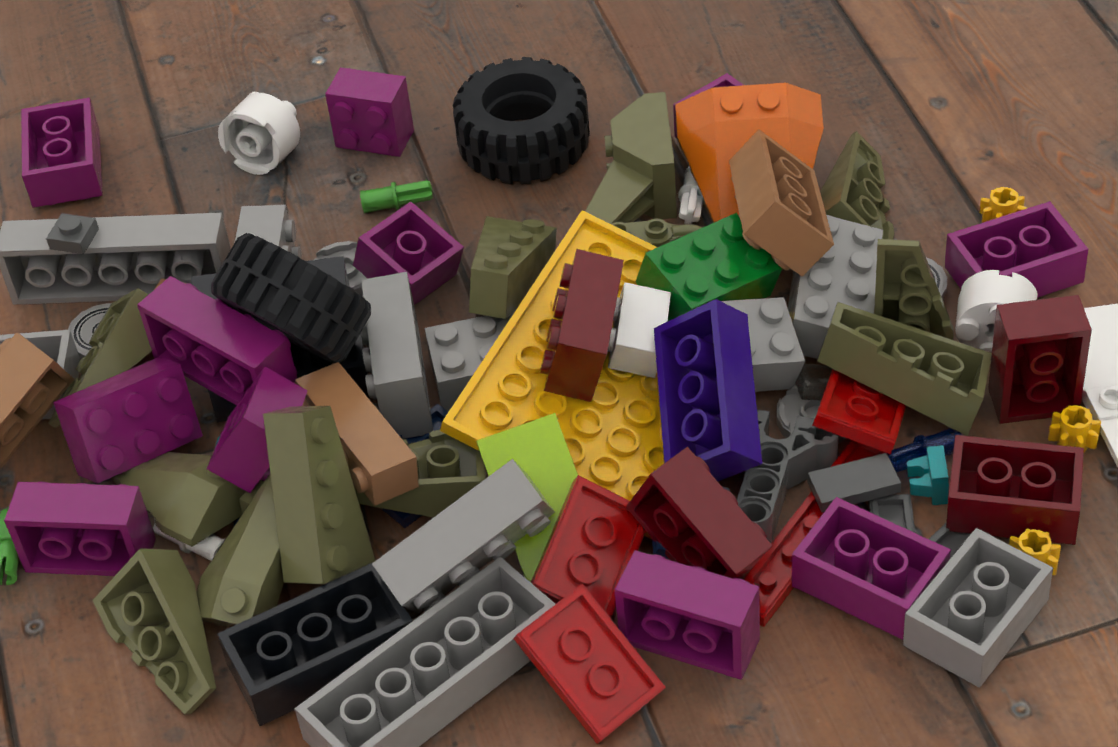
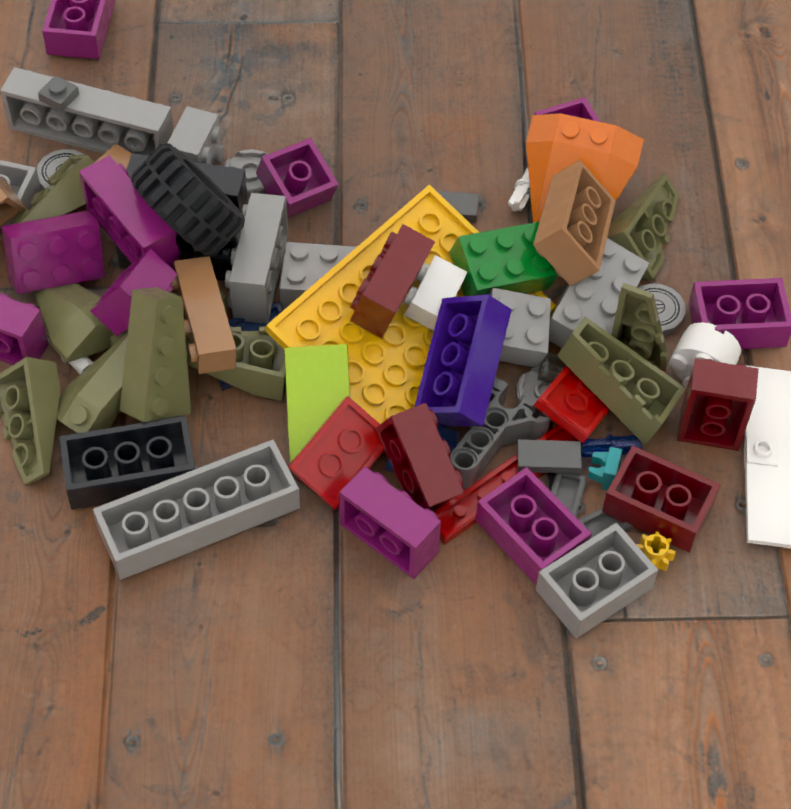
camera: 10 degrees right, 10 degrees up
(260, 132) = (226, 43): white brick -> none
(370, 111) = (311, 49): magenta brick -> none
(395, 196) = (308, 123): bright green axle -> none
(464, 538) = (252, 419): light grey brick -> none
(508, 264) = (363, 208): olive wedge -> none
(521, 149) = (420, 64): black tyre -> none
(589, 663) = (308, 537): red tile -> none
(640, 174) = (488, 165): olive slope -> none
(1001, 203) = (749, 267): yellow gear -> none
(1074, 428) = (726, 464): yellow gear -> none

